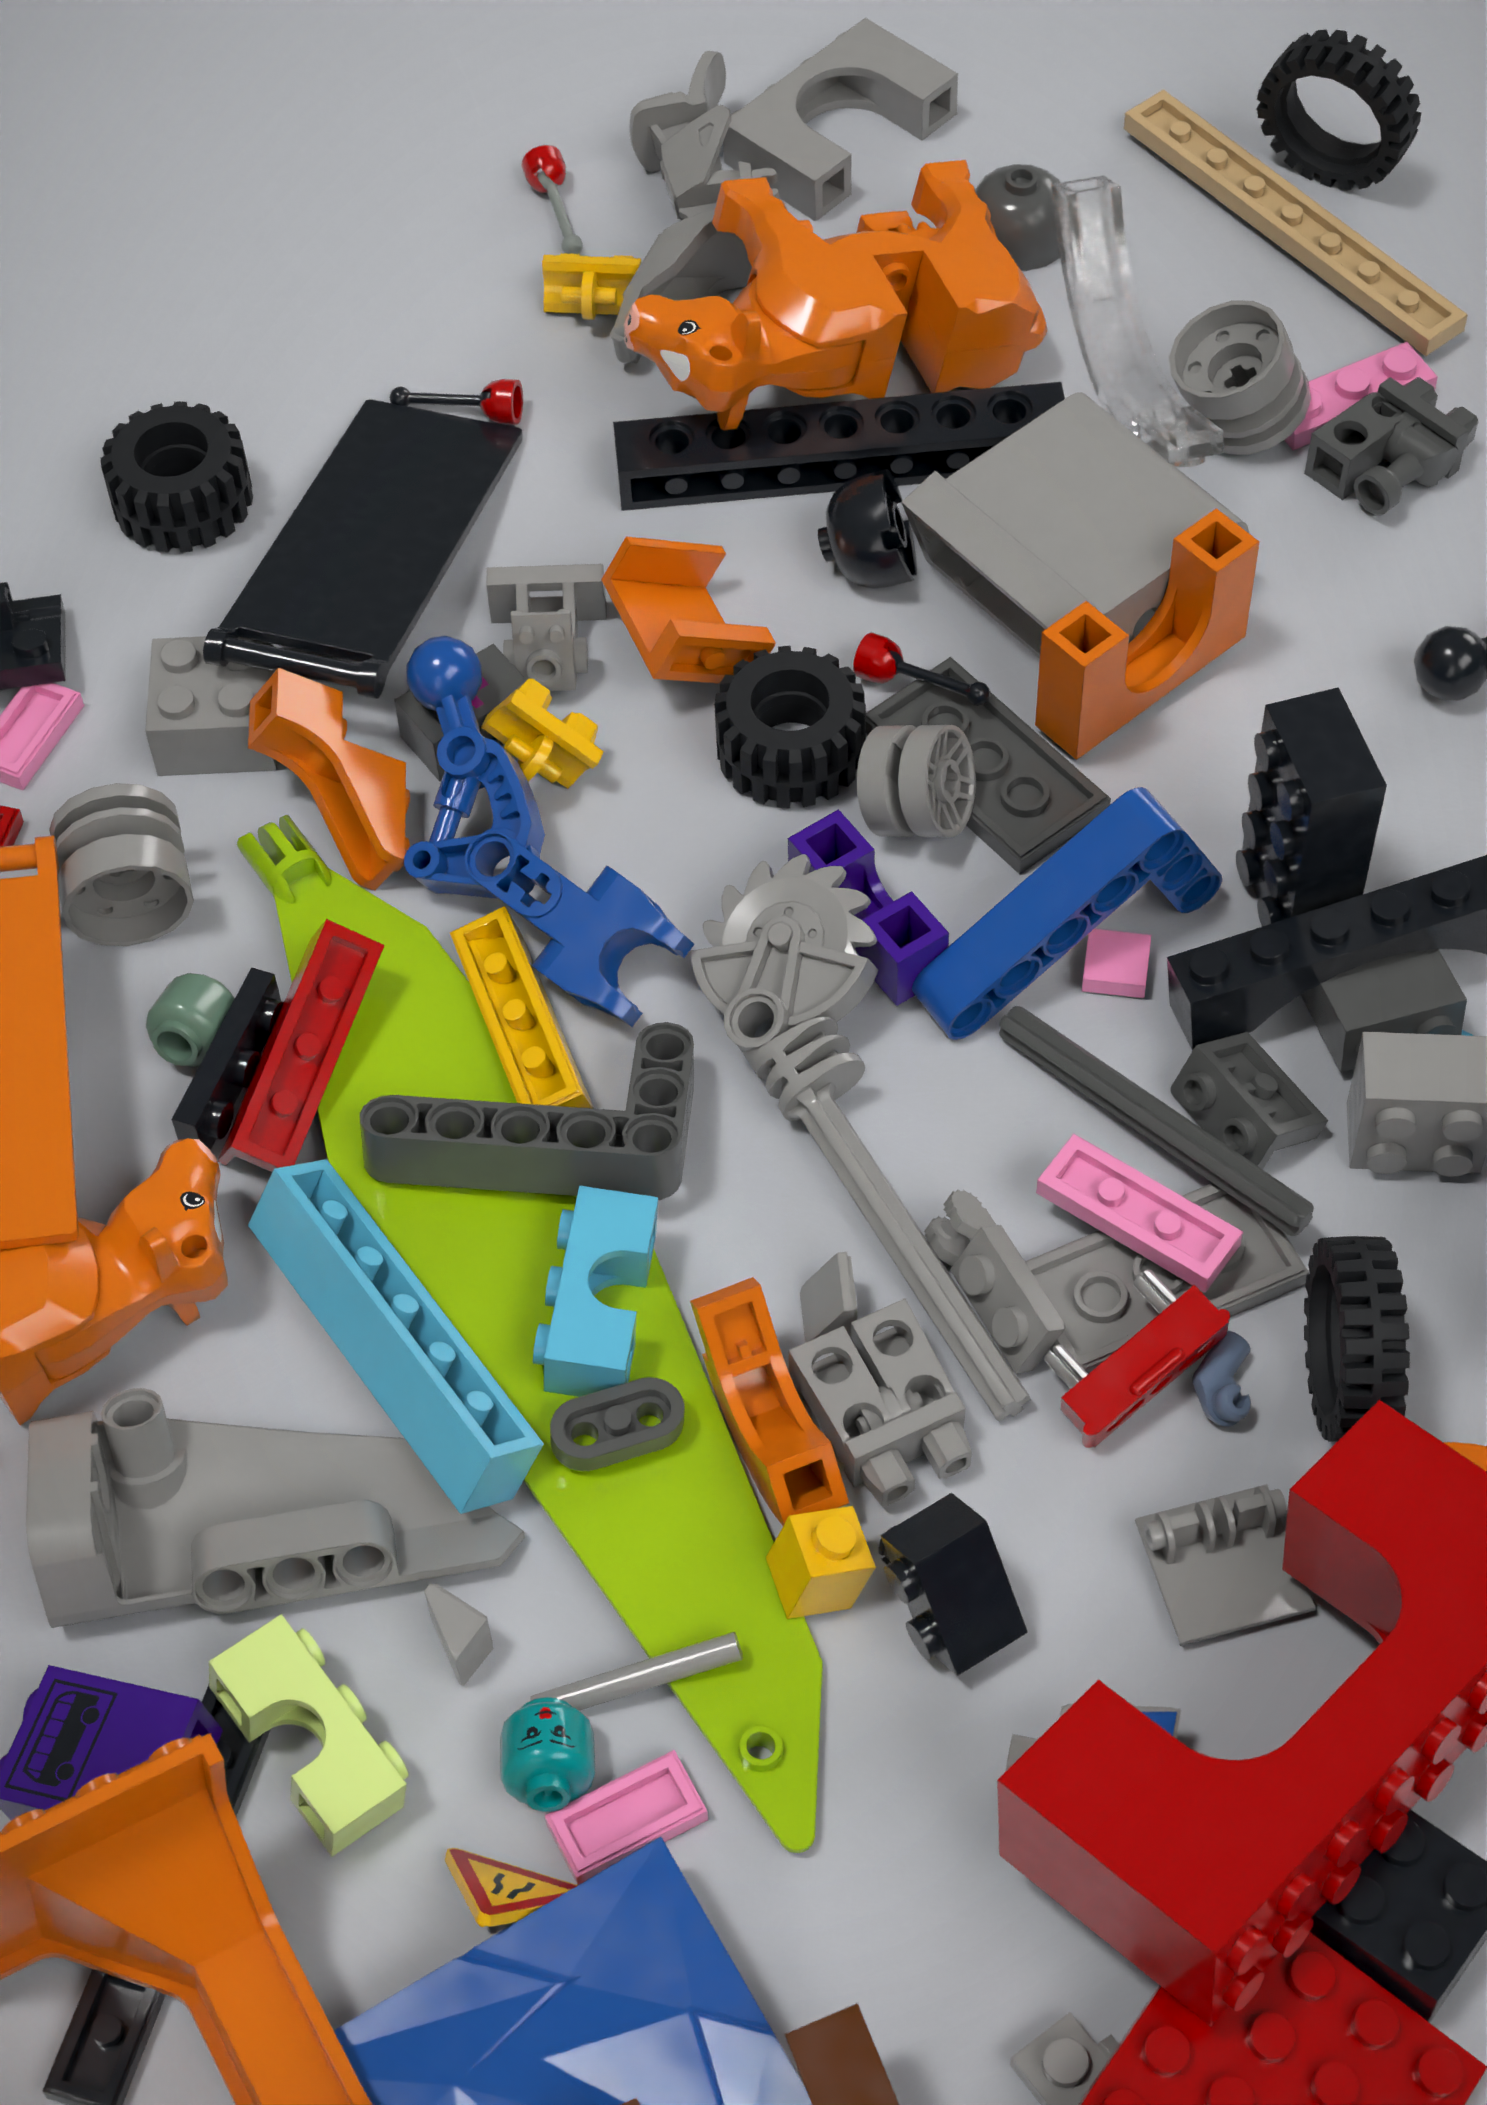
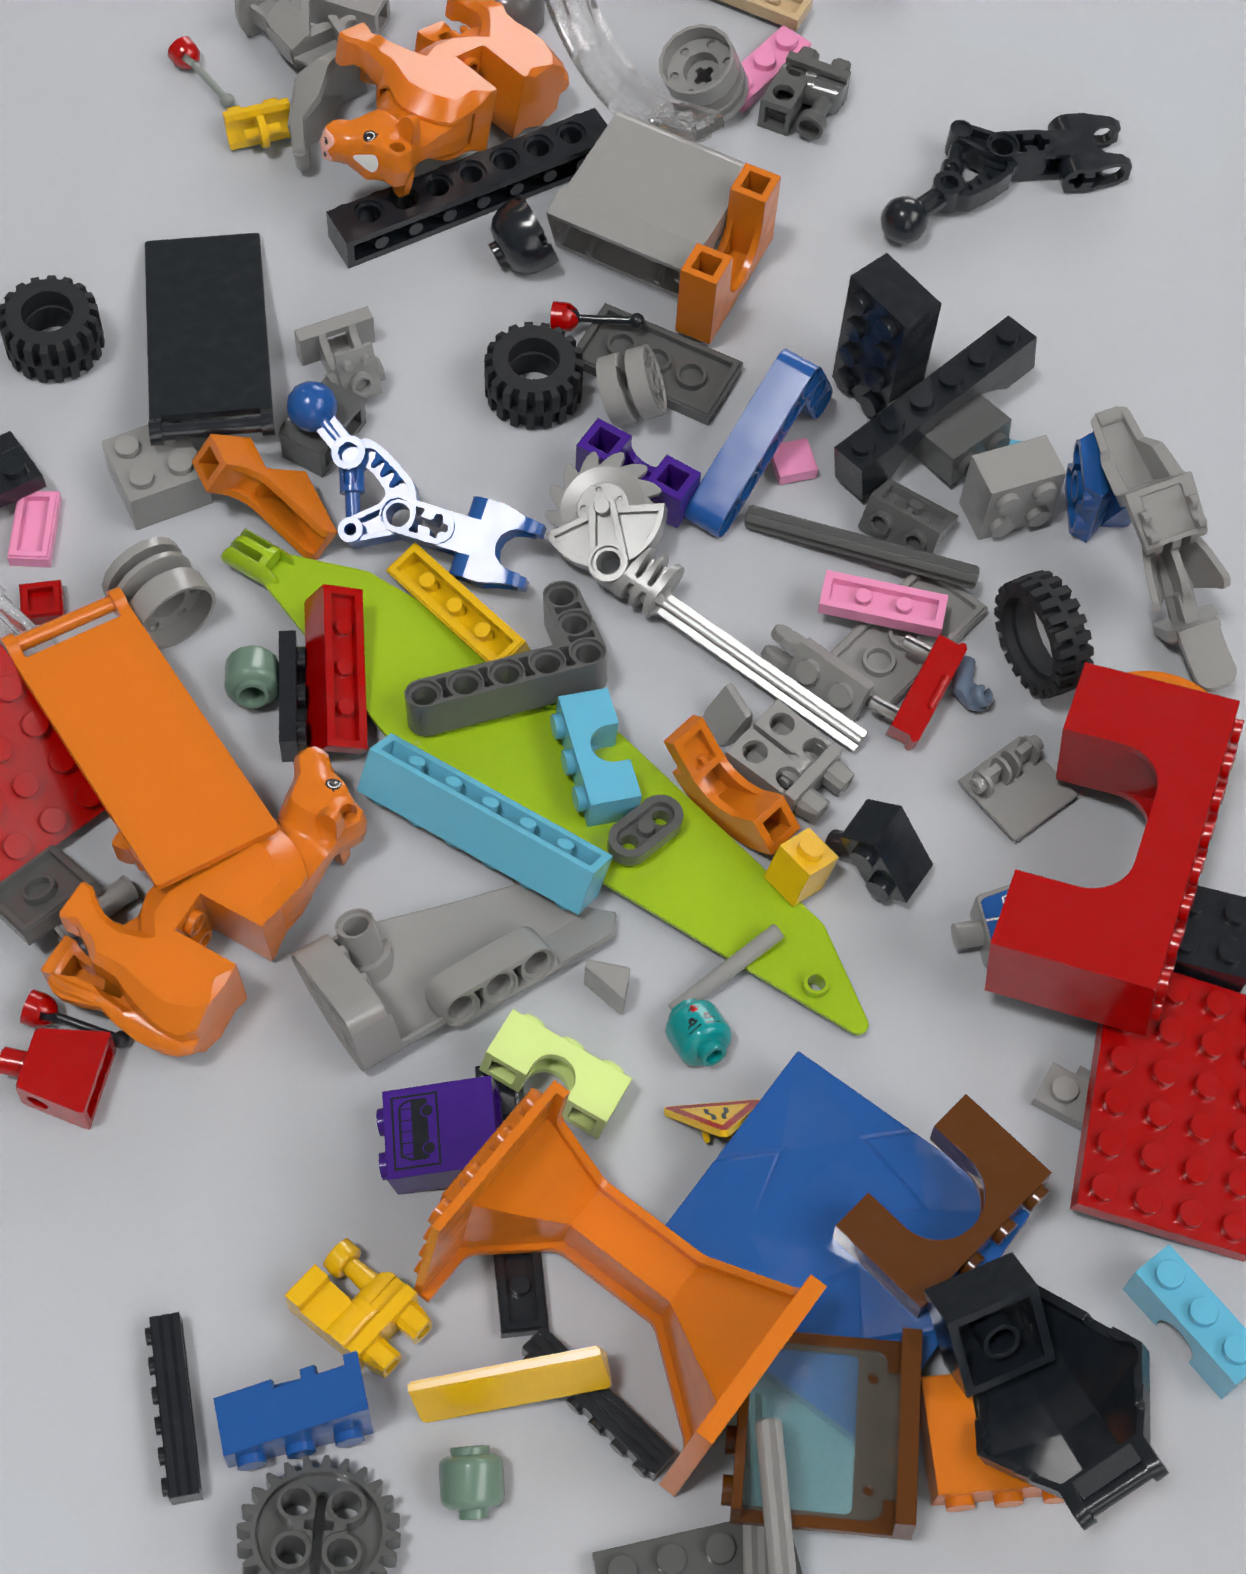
camera: 30 degrees left, 5 degrees up
(499, 400) = (234, 219): hinge -> none
(540, 740) = (393, 431): yellow hips -> none
(626, 1816) = (756, 1052): bright pink tile -> none
(671, 614) = (407, 313): orange panel -> none

